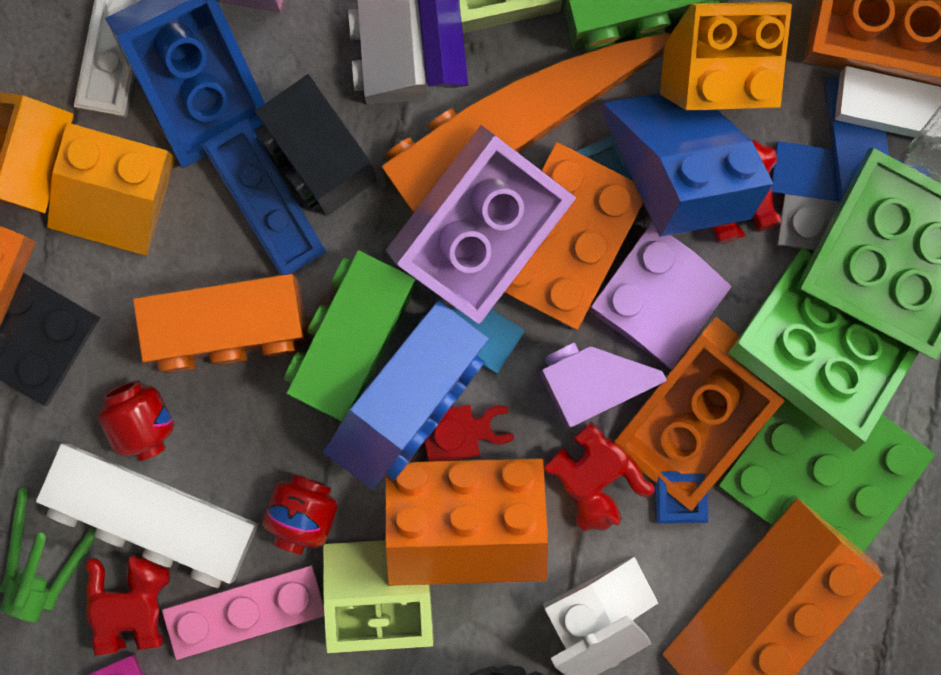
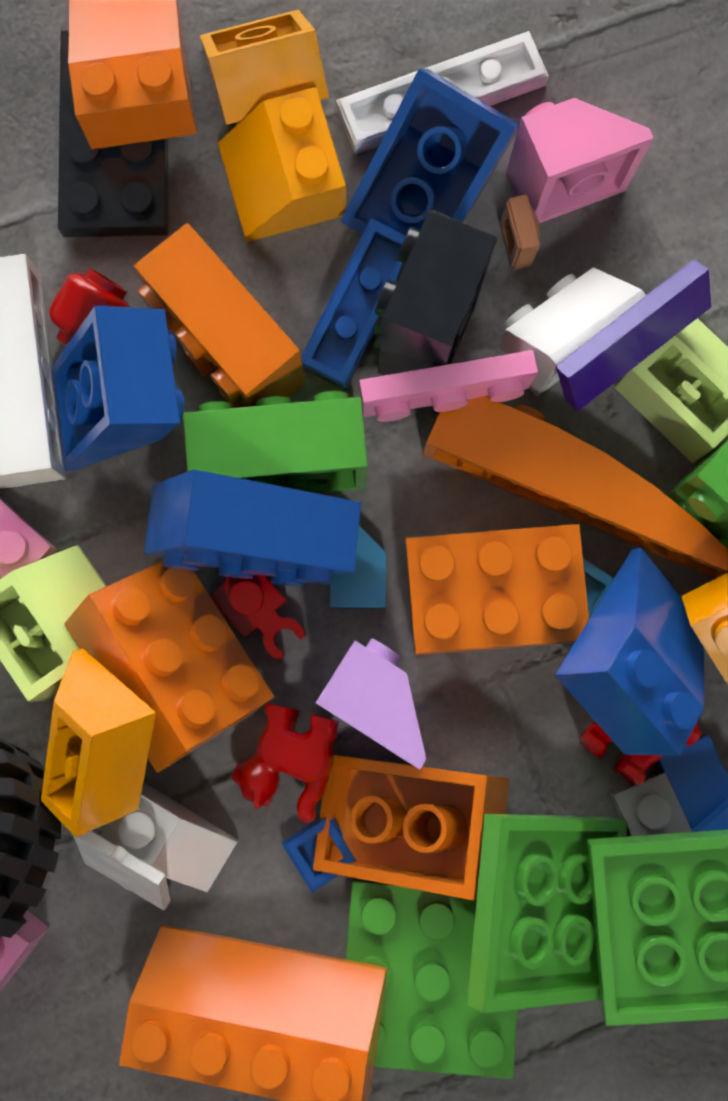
camera: 60 degrees right, 5 degrees down
(224, 438) = (116, 385): none -> blue slope
(286, 27) = (520, 231): none -> nougat tile
(300, 514) = (90, 505): red head -> none
(388, 175) = (447, 385): none -> bright pink plate
(479, 225) = (456, 500): lavender slope -> none
(501, 610) = (95, 747): none -> light orange slope
(660, 296) = (496, 713): lavender slope -> none

